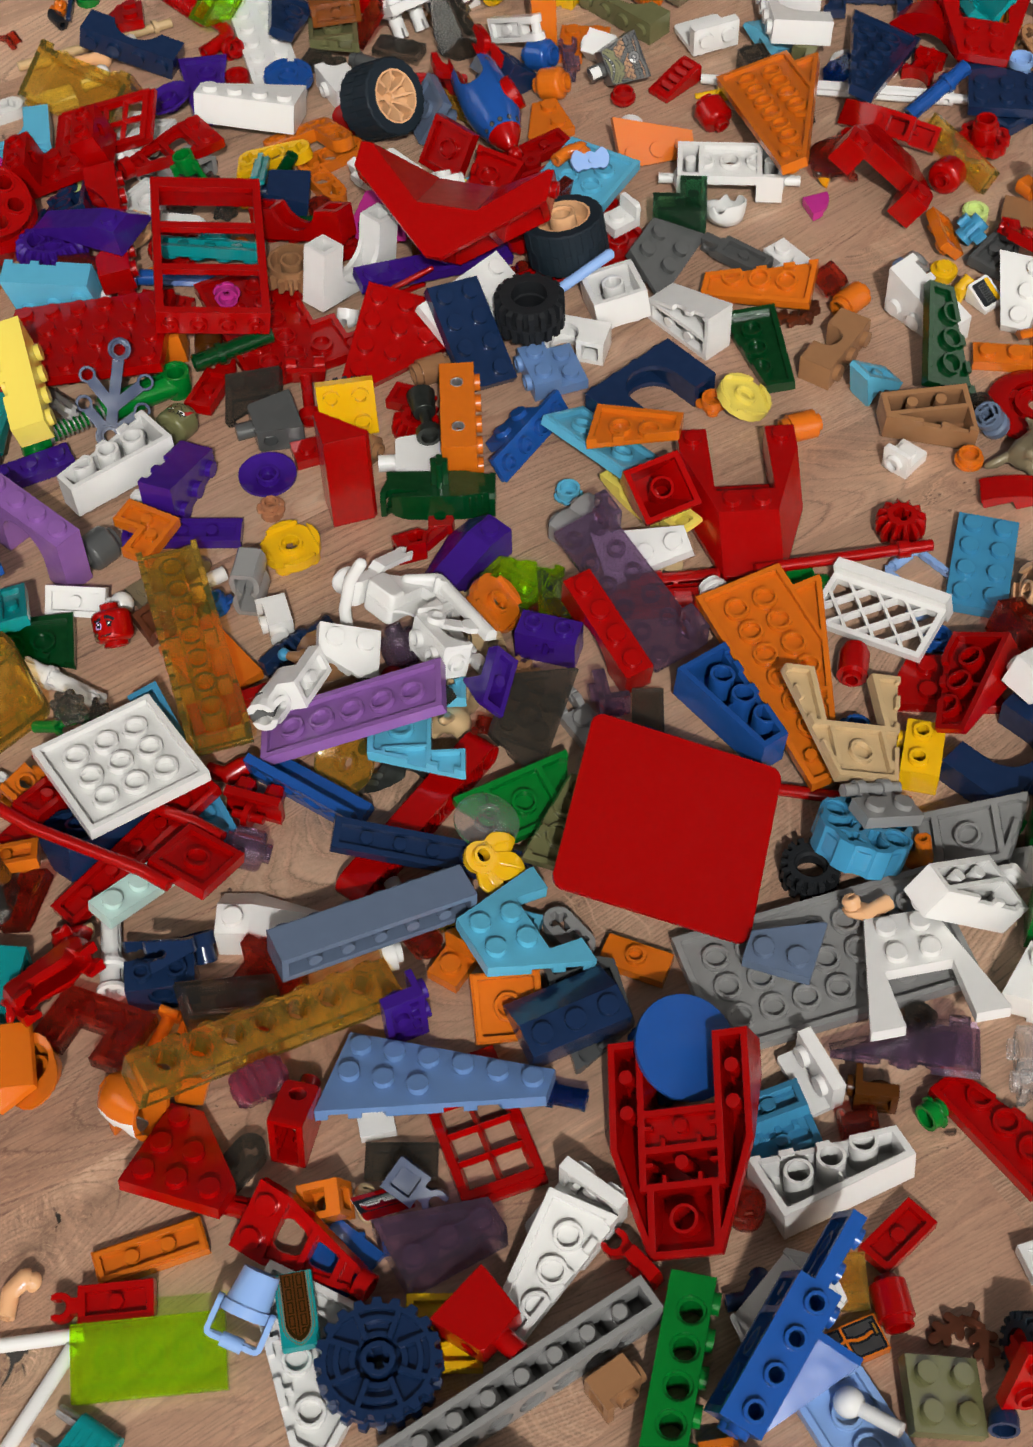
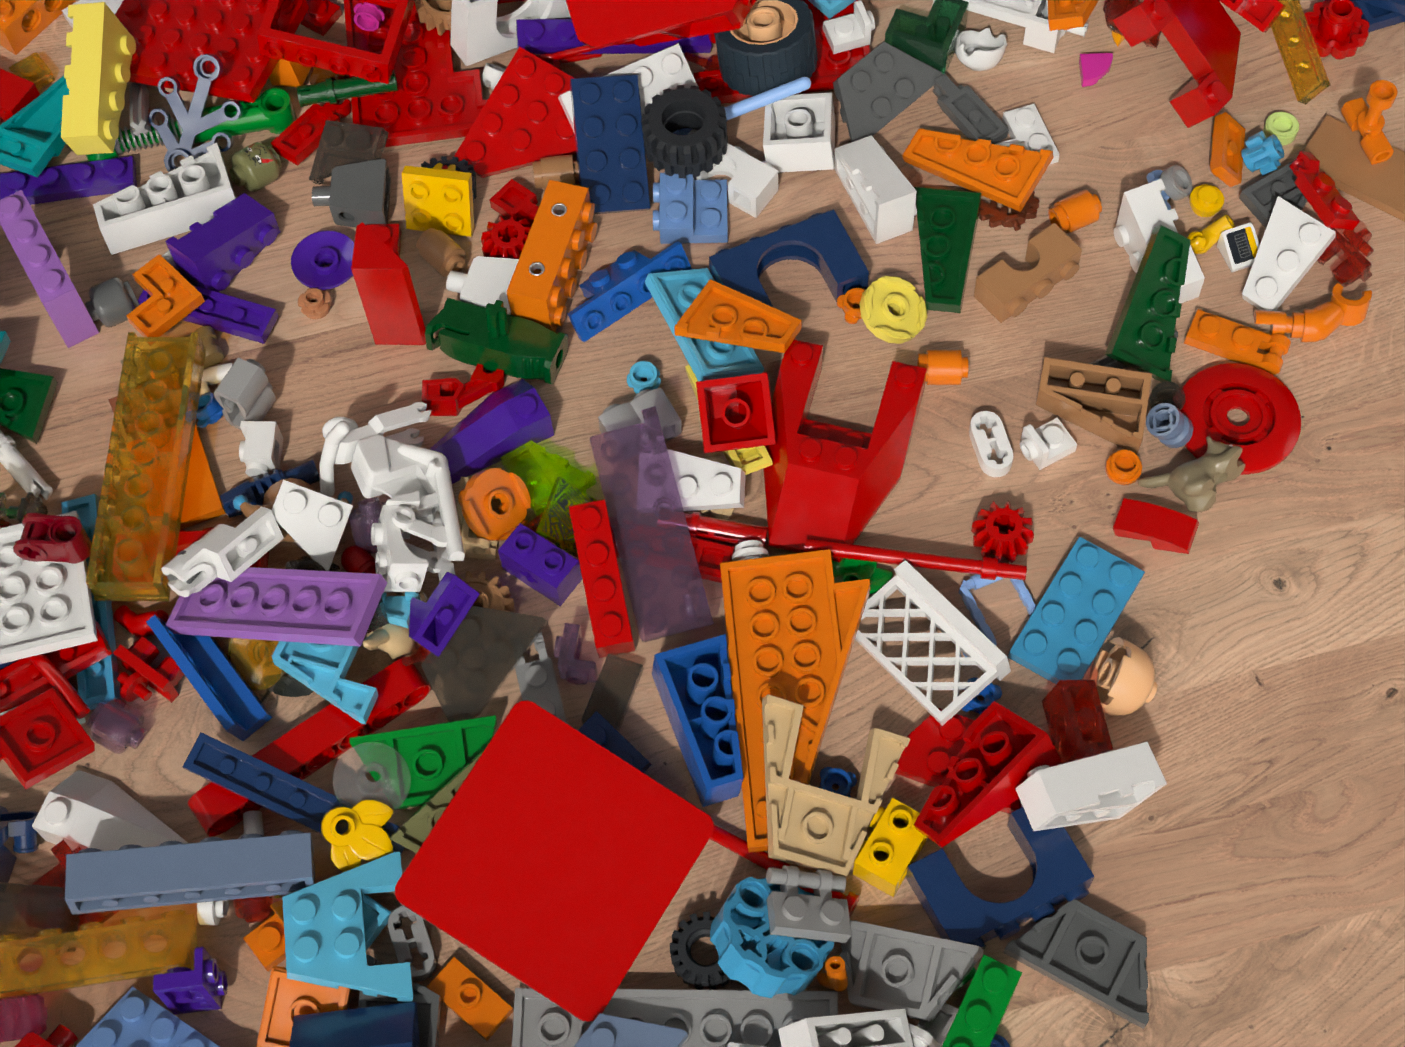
camera: 20 degrees right, 10 degrees up
(82, 600) = (72, 365): white plate -> none
(112, 625) = (86, 406): red head -> none
(146, 710) = (53, 539): none -> dark red piece
(291, 560) = (320, 376): yellow plate -> none
(306, 377) = (412, 147): red bar -> none
(422, 404) = (515, 227): pearl dark grey piece -> none
(830, 279) = (1060, 178): clear red tile -> none
(853, 663) = (868, 701): red brick -> none
(857, 471) = (997, 441): none -> white beam
(859, 910) = (737, 1029): light nougat arm -> none
(869, 379) = (1054, 327): medium azure slope -> none
(949, 172) = (1267, 68): red head -> none

